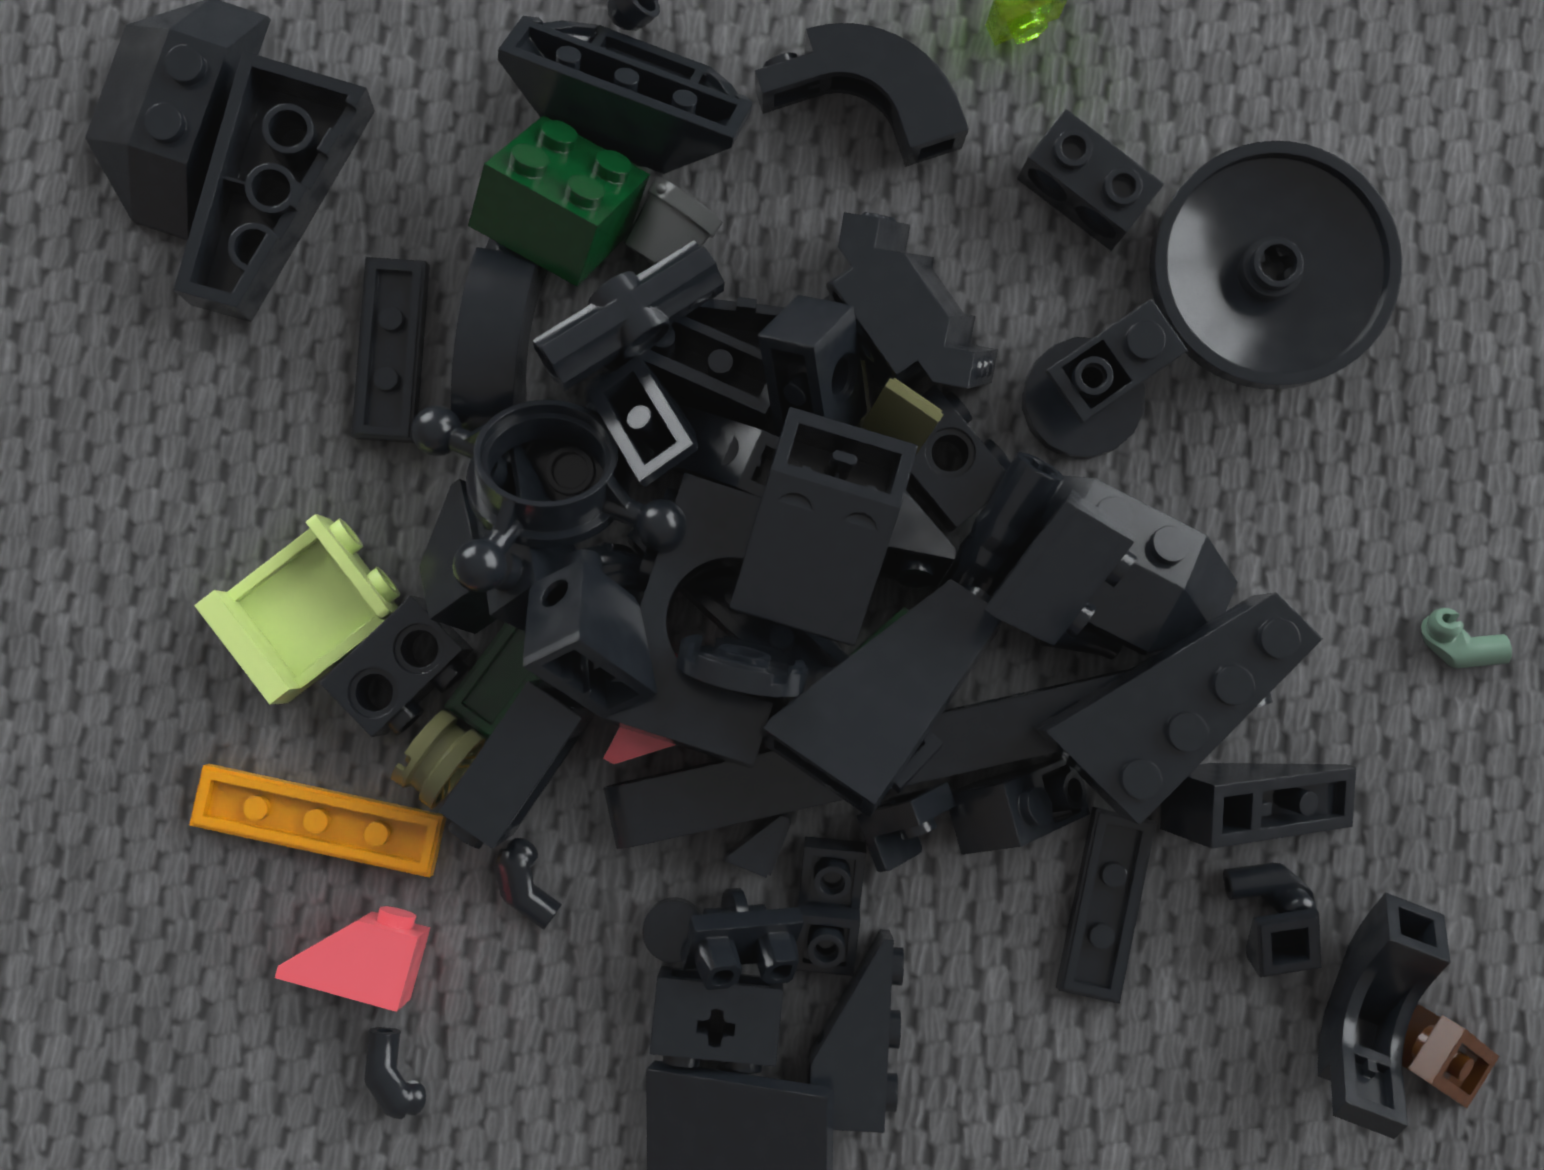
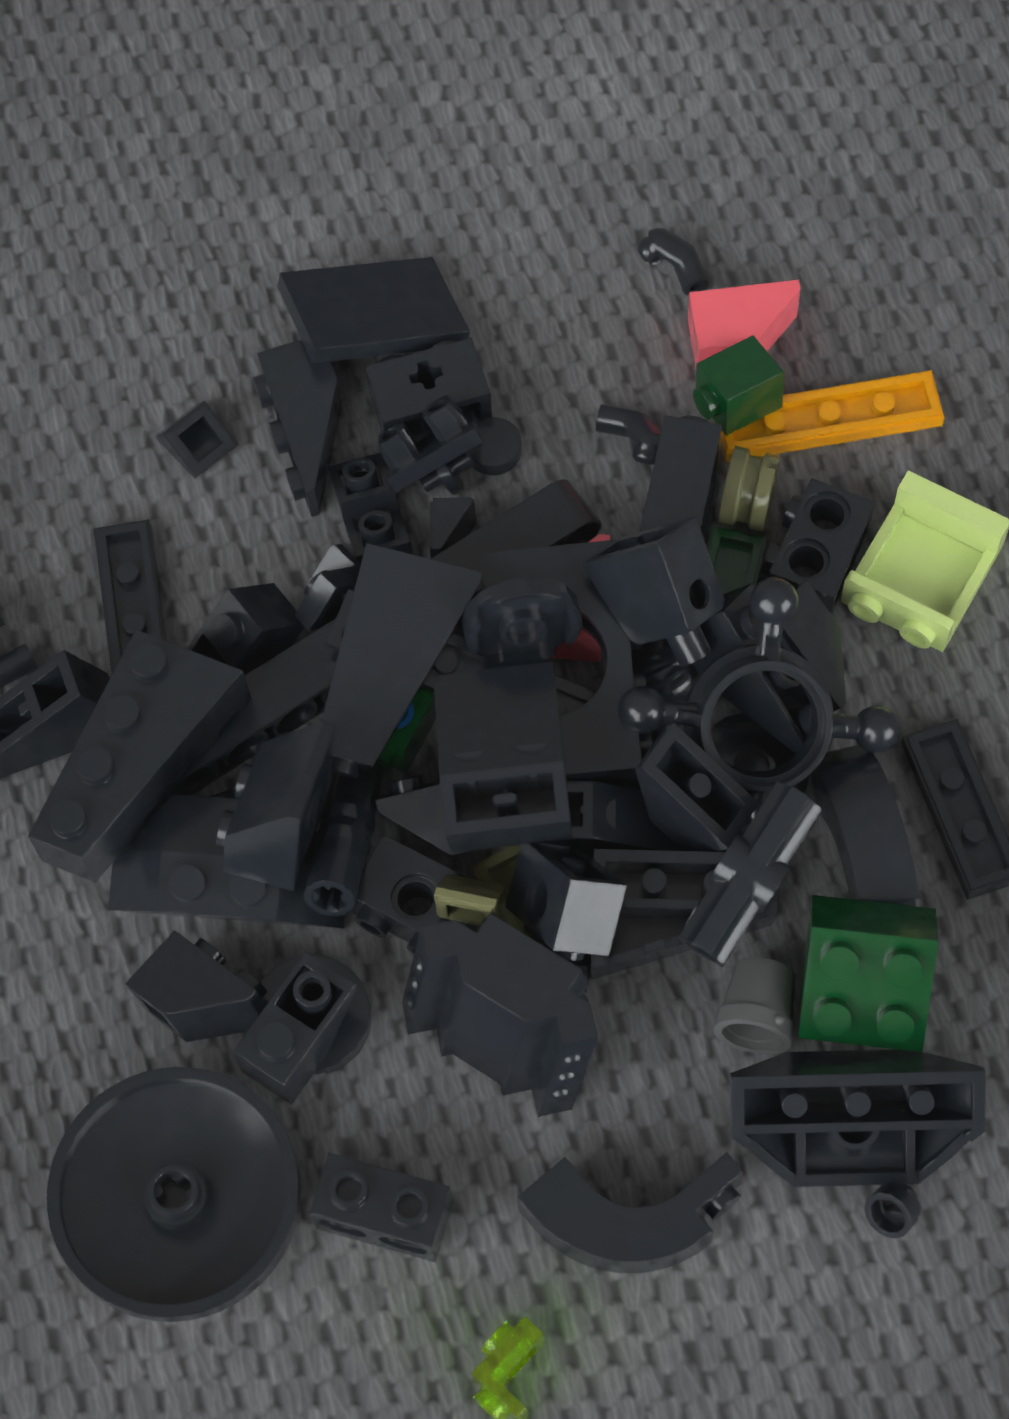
camera: 165 degrees right, 20 degrees down
(395, 878) = (738, 385): none -> dark green brick
(976, 1069) = (197, 439): none -> black slope
(1190, 453) = (194, 992): none -> black slope

